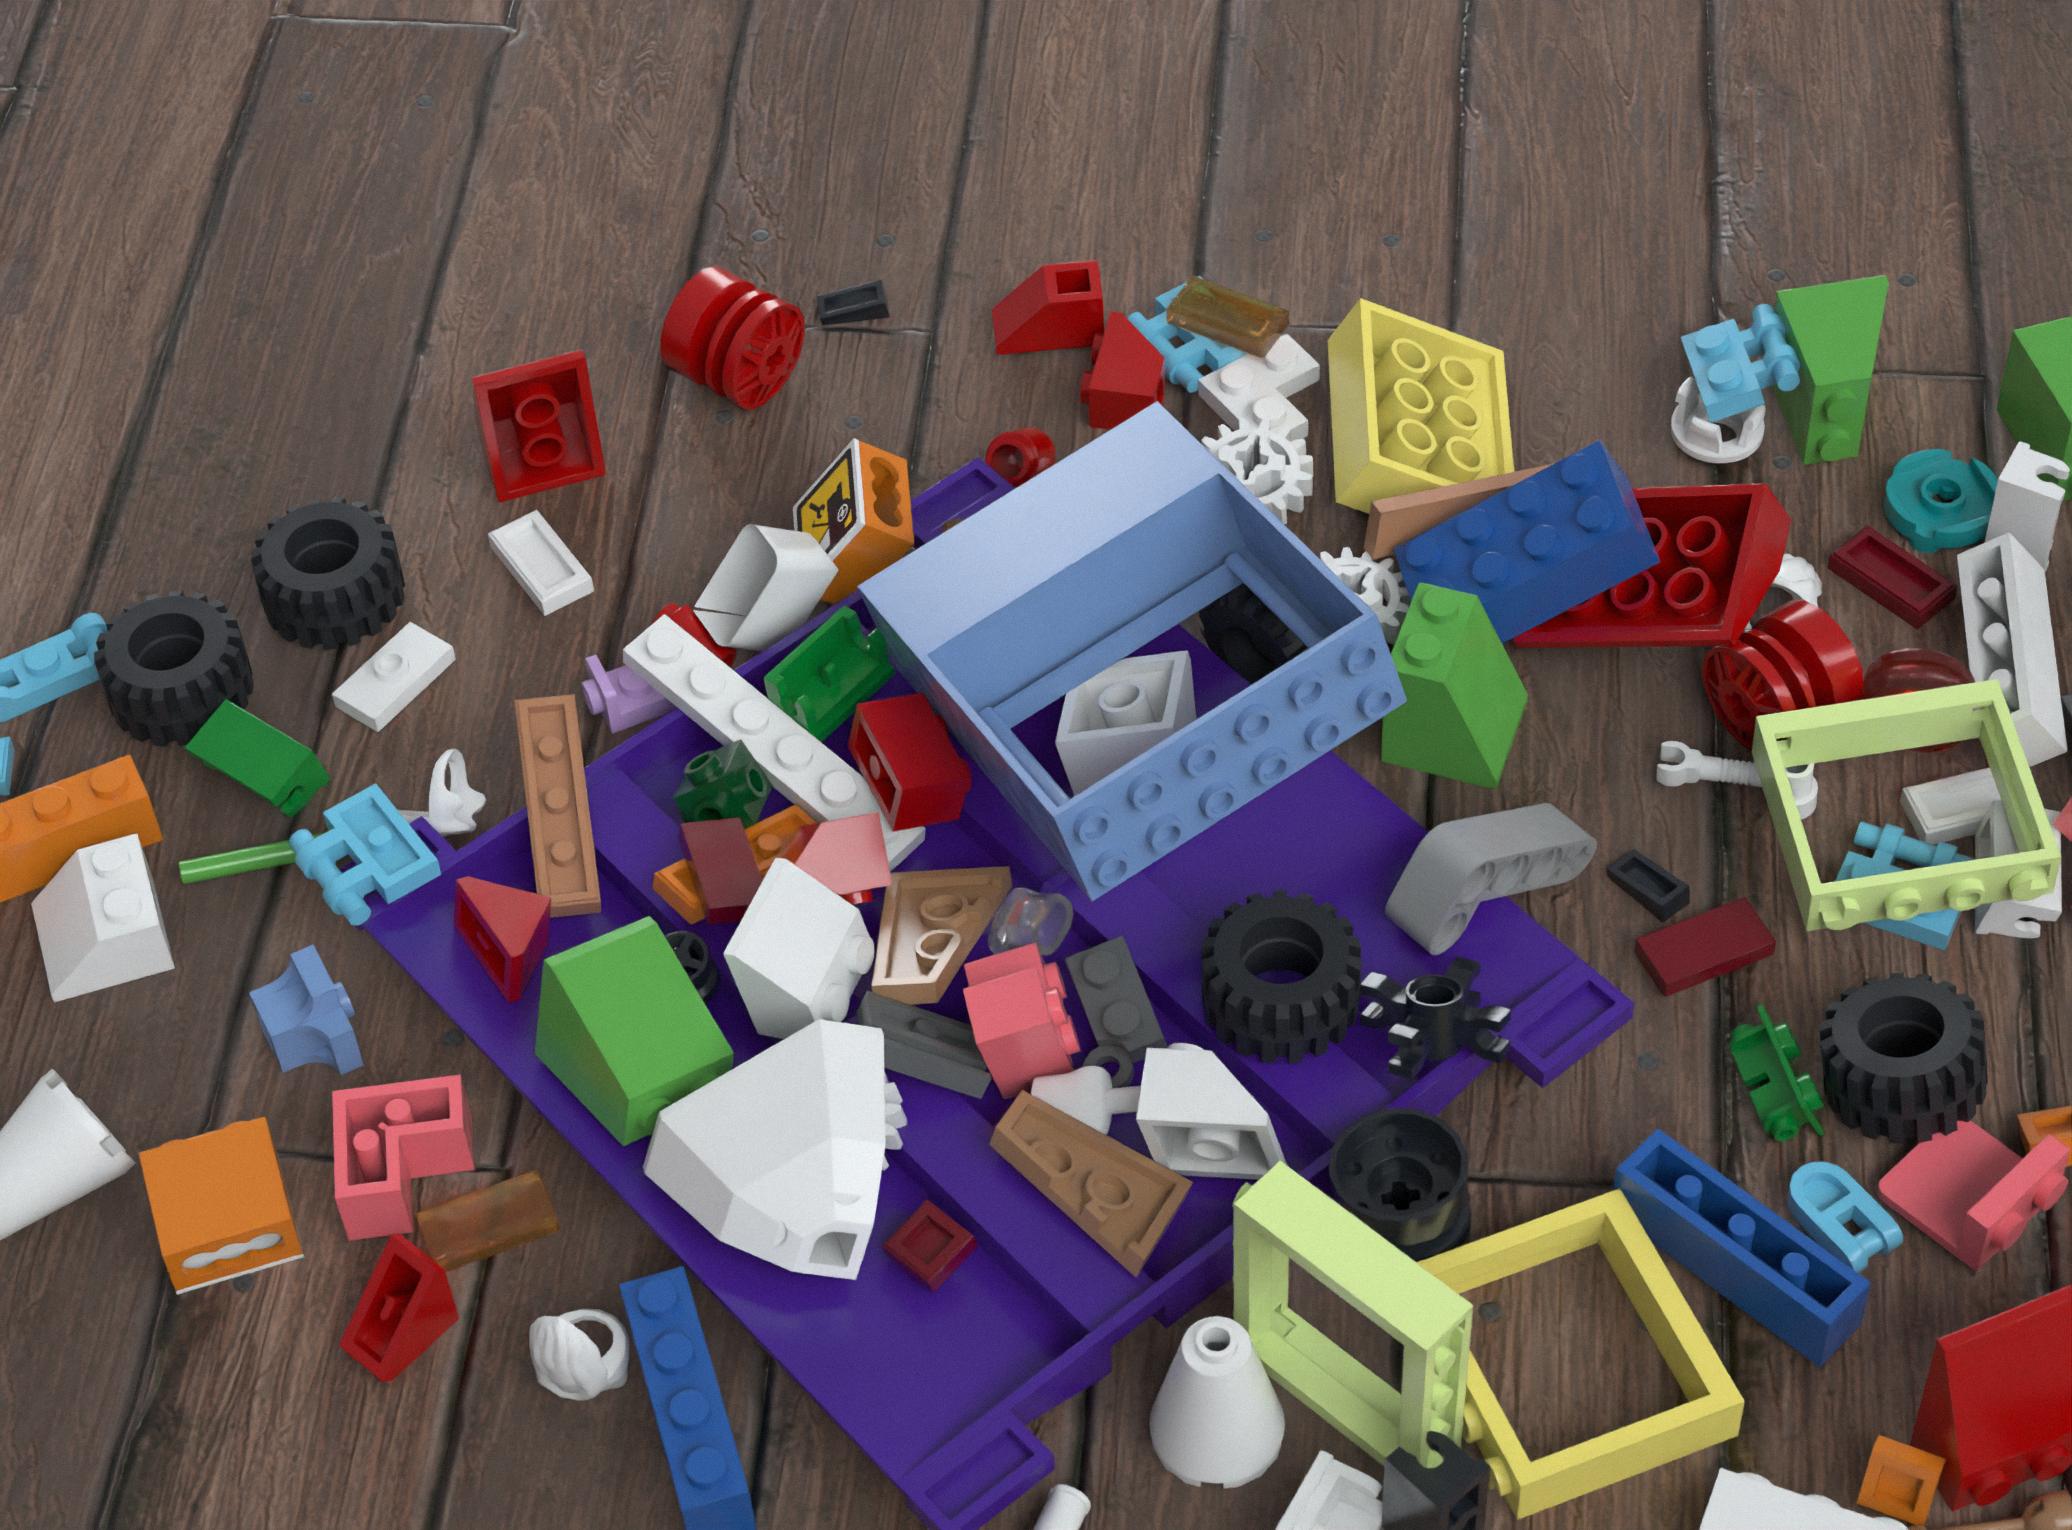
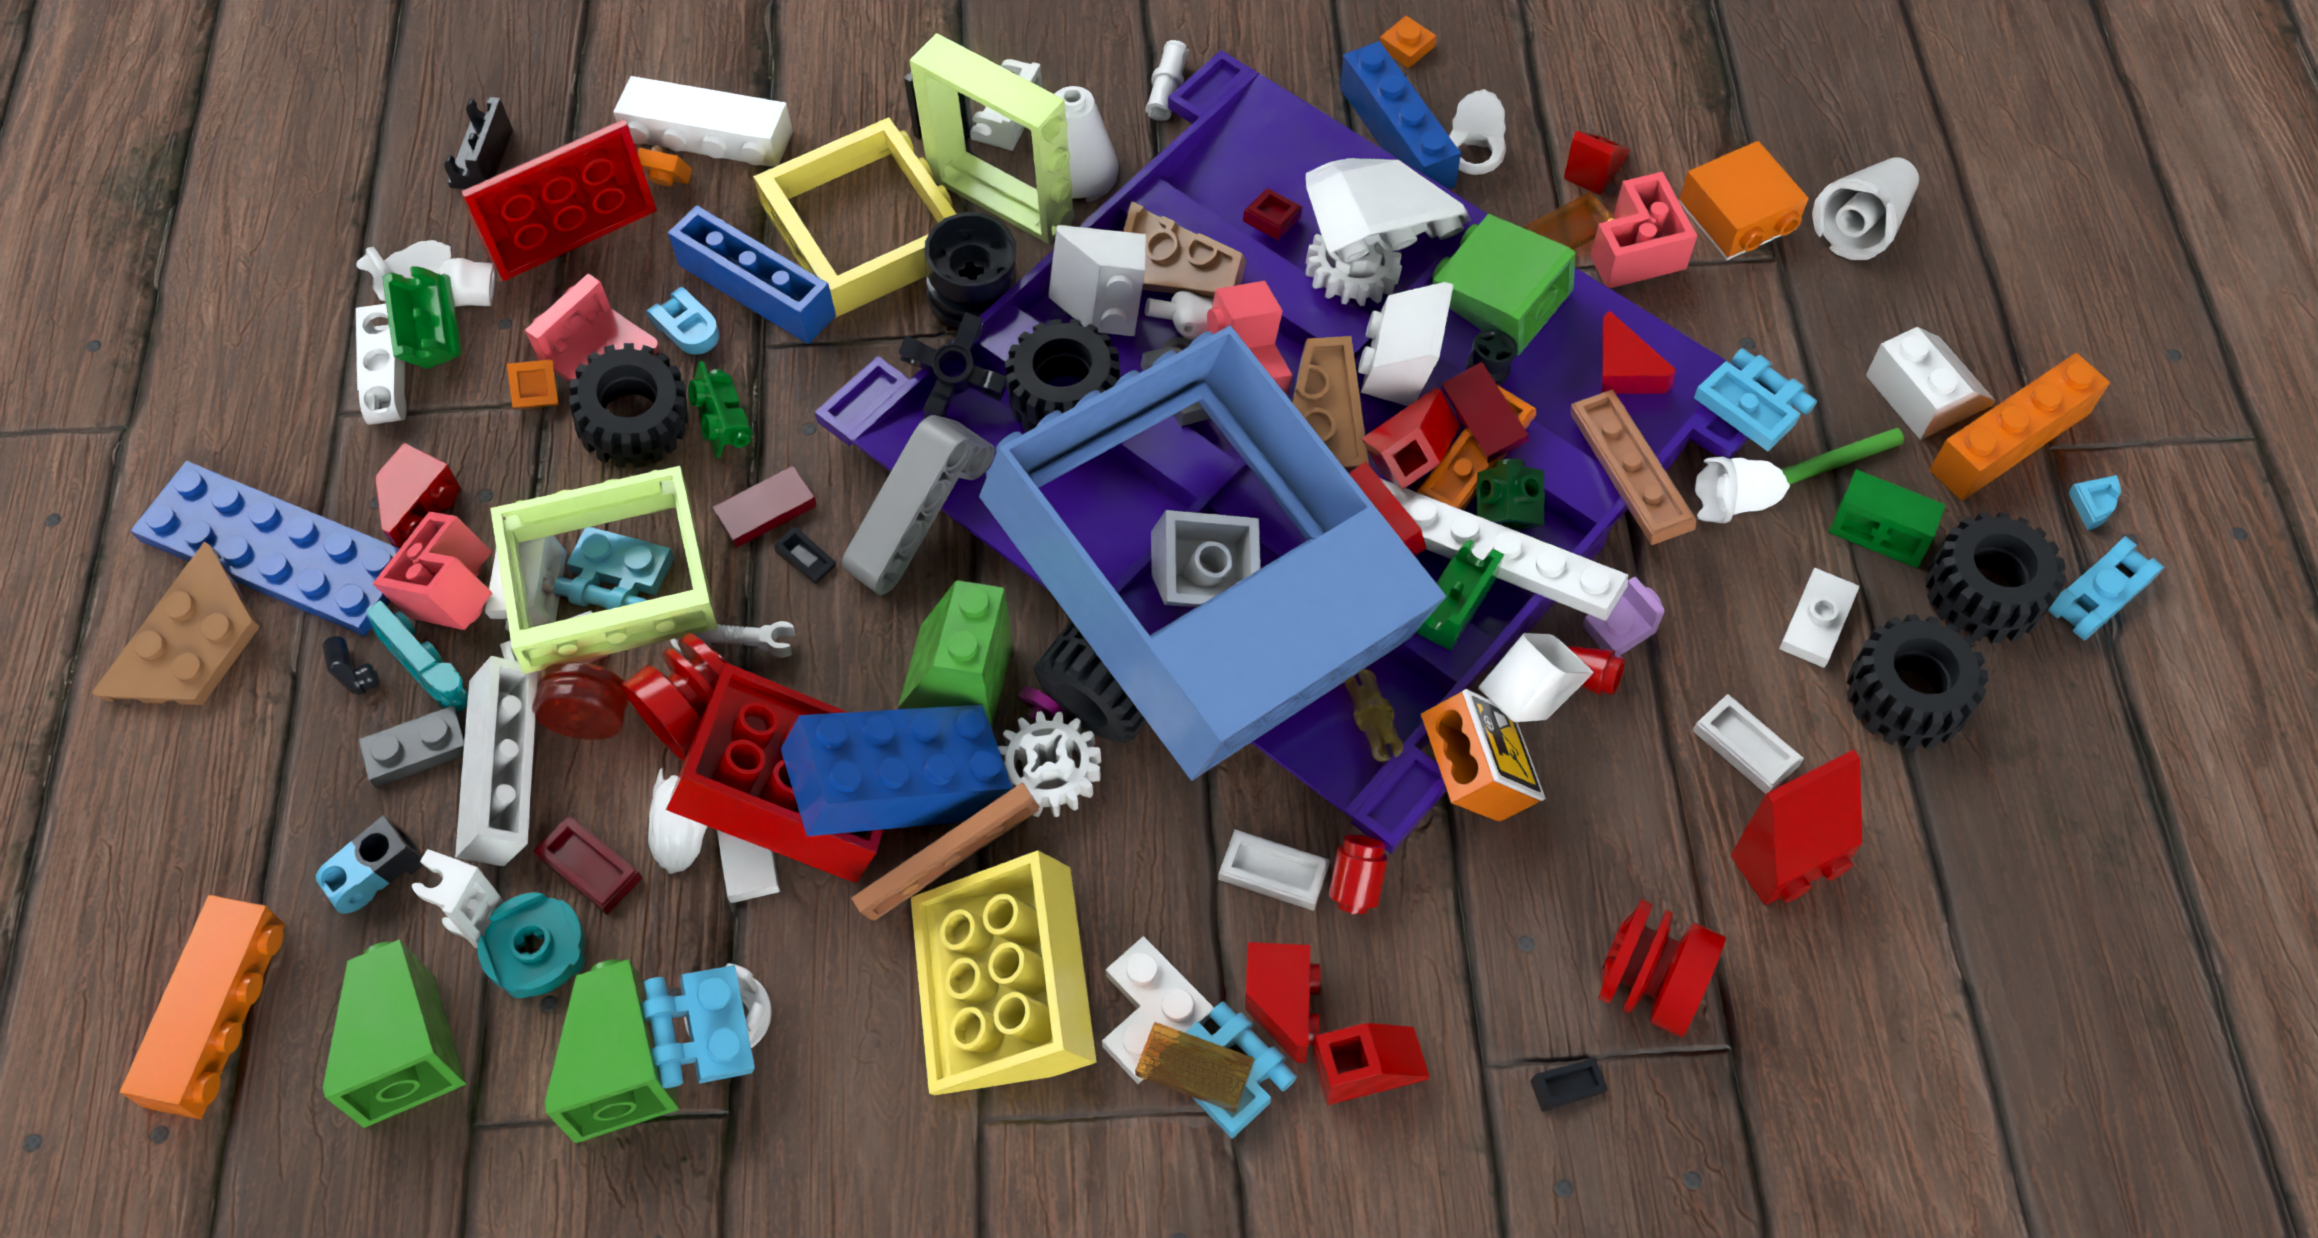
camera: 170 degrees right, 10 degrees up
(307, 1016) = (1745, 321): medium blue brick -> none
(926, 1045) = (1313, 311): dark grey plate -> none
(1266, 464) = (1172, 893): white gear -> none

